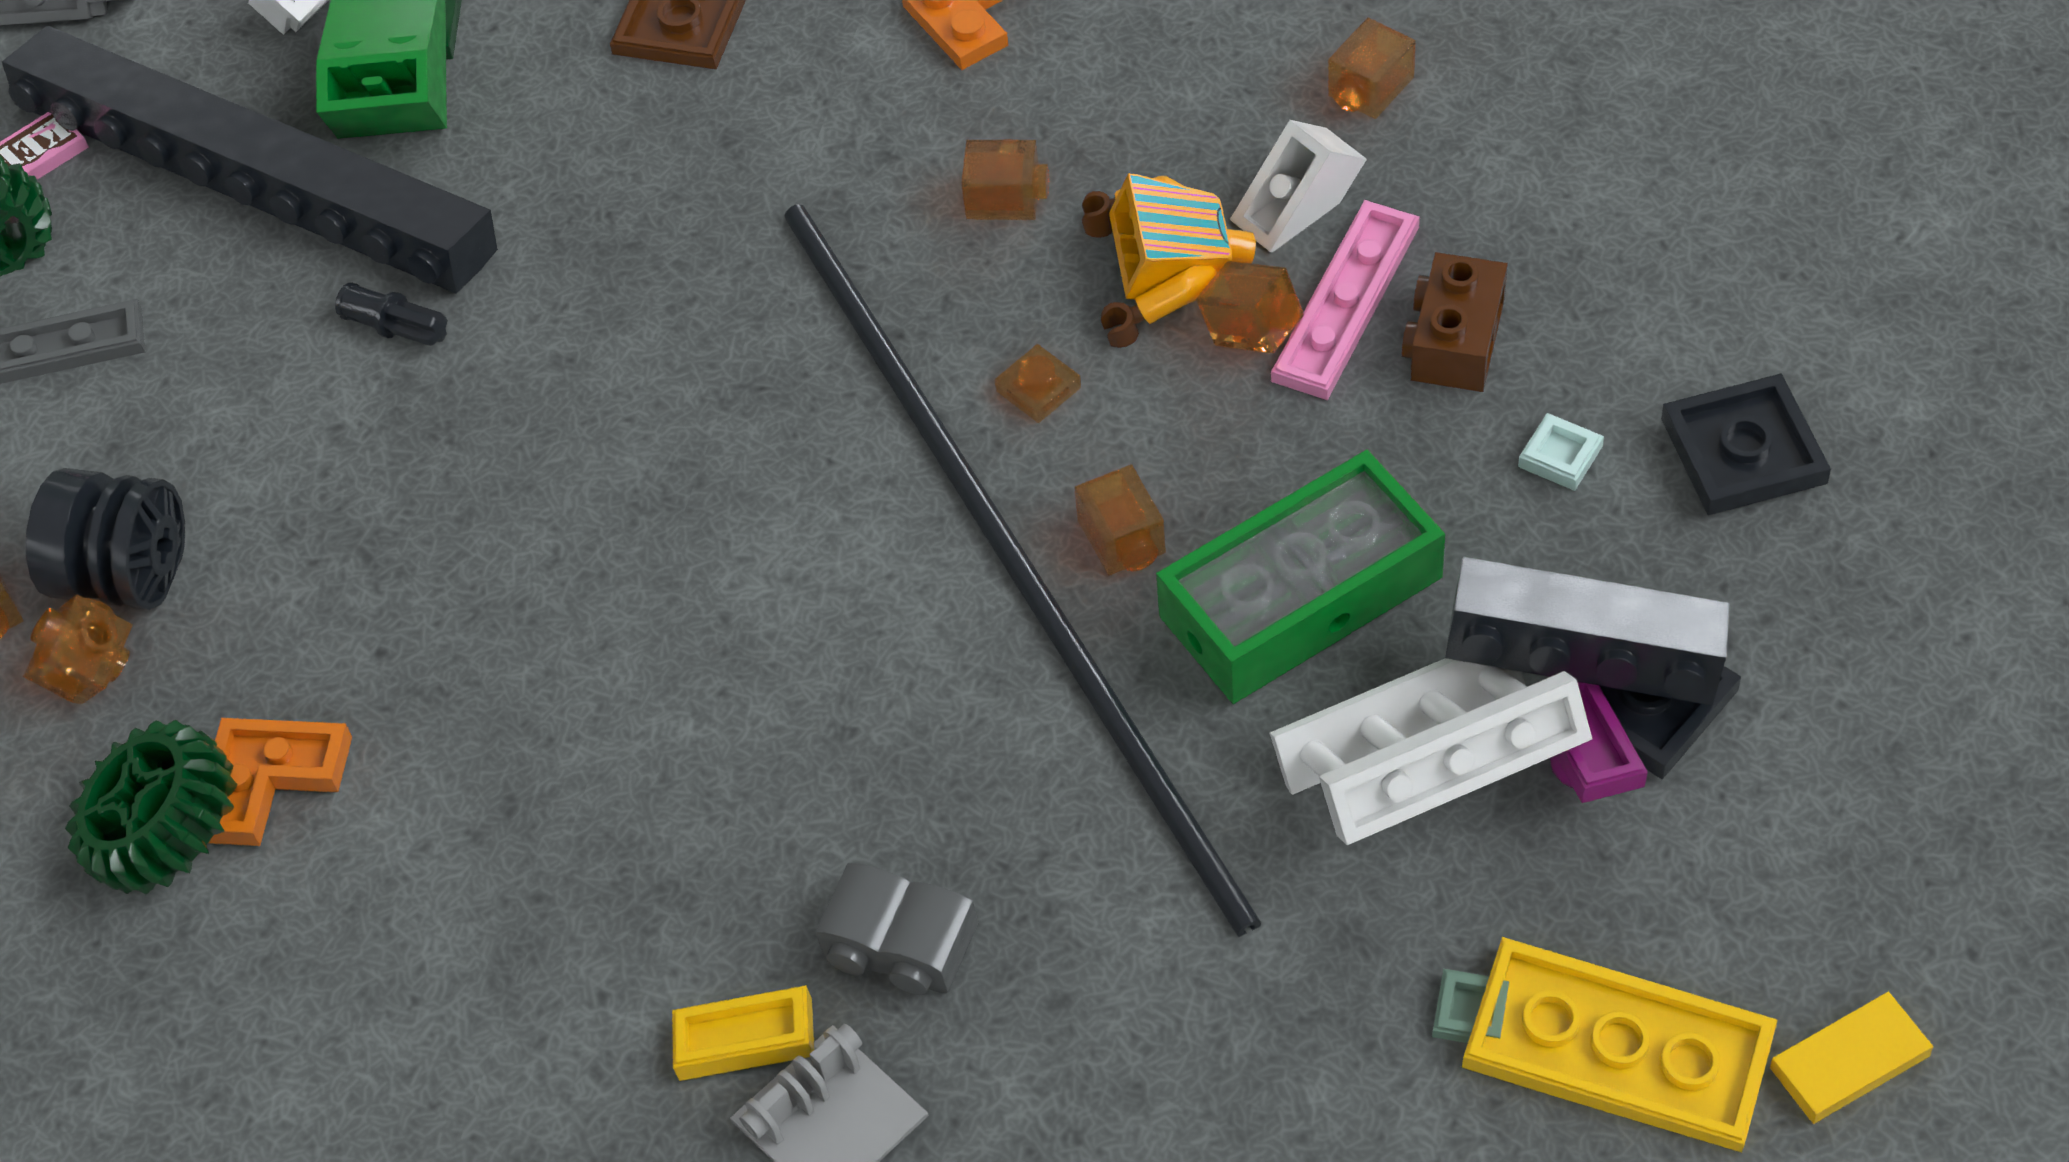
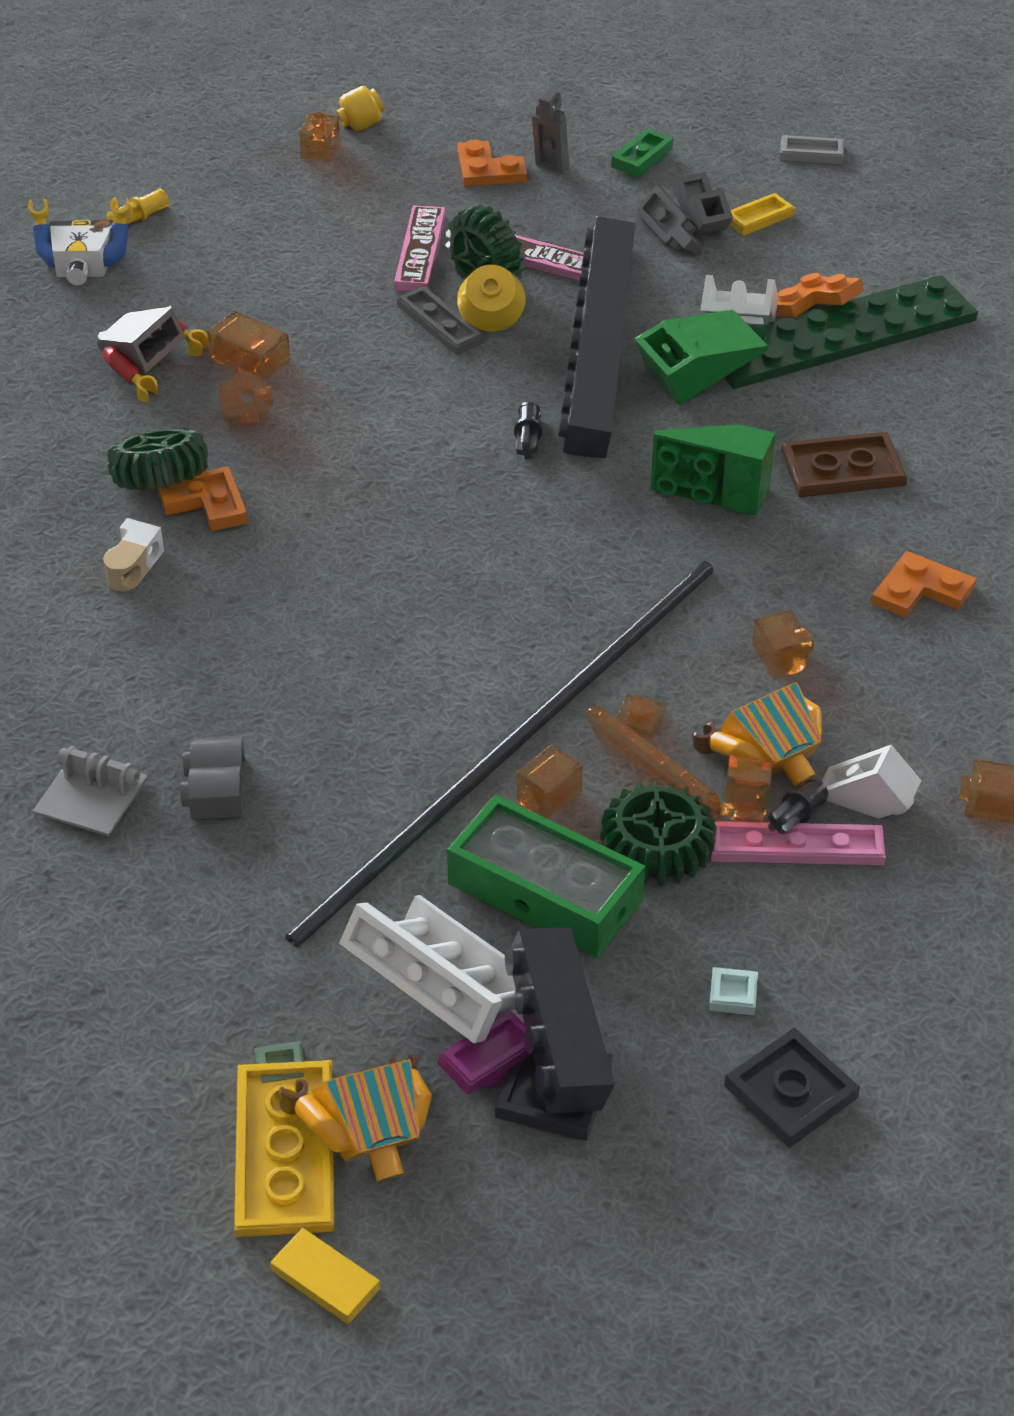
camera: 60 degrees right, 10 degrees down
(80, 255) = (491, 298): none -> yellow cone
(105, 538) = (310, 376): black wheel -> none
(335, 902) = (133, 556): none -> tan leg
(644, 116) = (714, 465): none -> green slope
(742, 1033) = (127, 738): yellow tile -> none
(1144, 391) = (650, 758): none -> clear orange tile
(1252, 405) = (681, 821): none -> dark green gear
(1303, 266) = (797, 806): none -> black axle
(1456, 321) = (802, 900): reddish brown brick -> none
(1630, 911) = (366, 1112): none -> light orange torso

